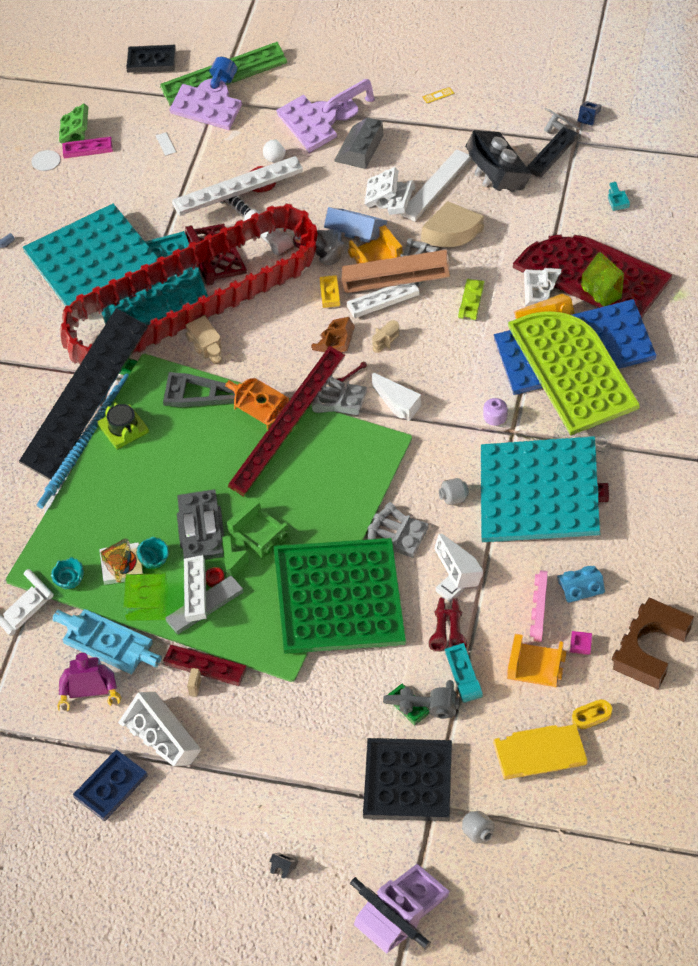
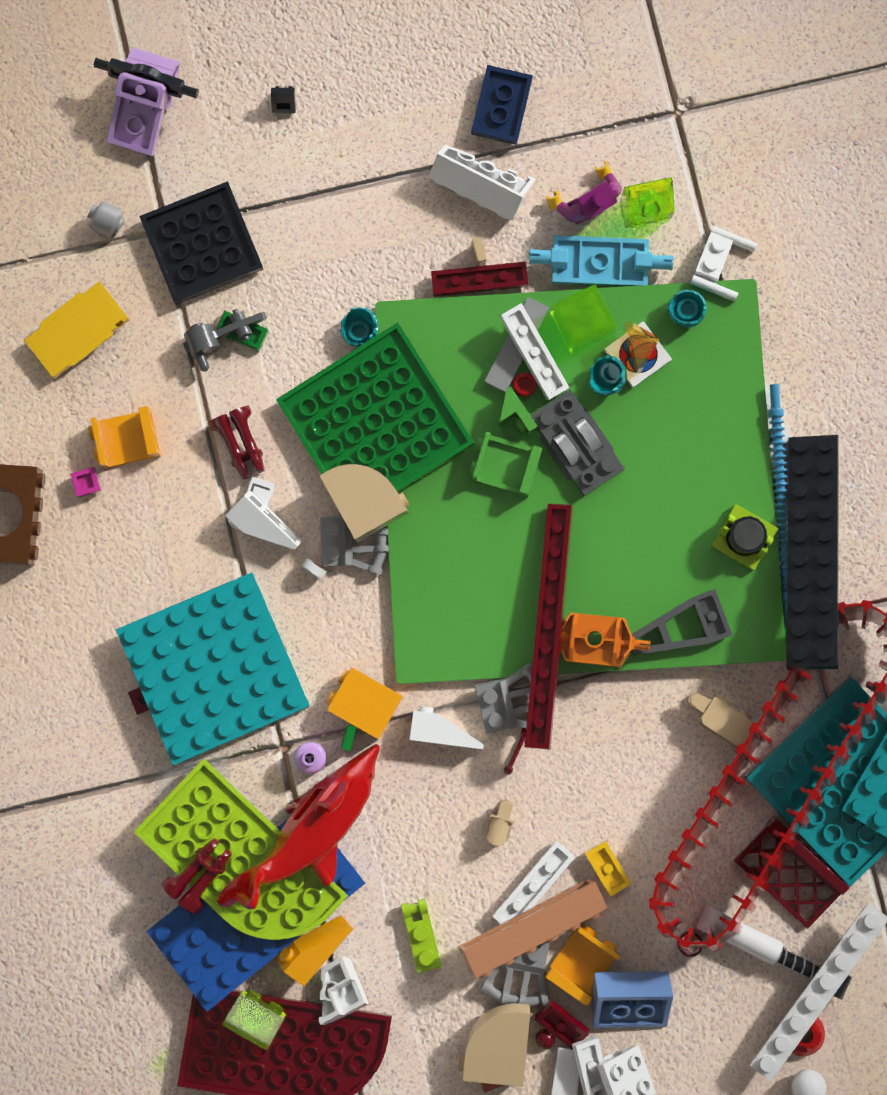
camera: 145 degrees right, 30 degrees up
(45, 661) = (647, 203): none -> clear neon green slope
(315, 664) = (358, 326): none -> teal hair
(329, 246) = (642, 938): flat silver hair -> none
(336, 335) = (563, 798): dark orange slope -> none
(373, 540) = (364, 498): none -> tan brick
(407, 226) = (558, 1024): none -> dark red plate
(434, 522) = (314, 568): none -> white tile
(441, 429) = (363, 702): none -> light orange panel
(453, 491) = (310, 620): light grey head -> none
(462, 415) = (348, 739): none -> green tile
(463, 673) = (195, 386): teal plate -> none
(502, 368) = (311, 832): none -> red animal
(538, 613) = (146, 498): bright pink plate -> none
(581, 583) = (115, 561): dark azure bracket -> none
(590, 714) = (39, 397): yellow plate -> none
(592, 368) = (175, 886): none -> dark red piece

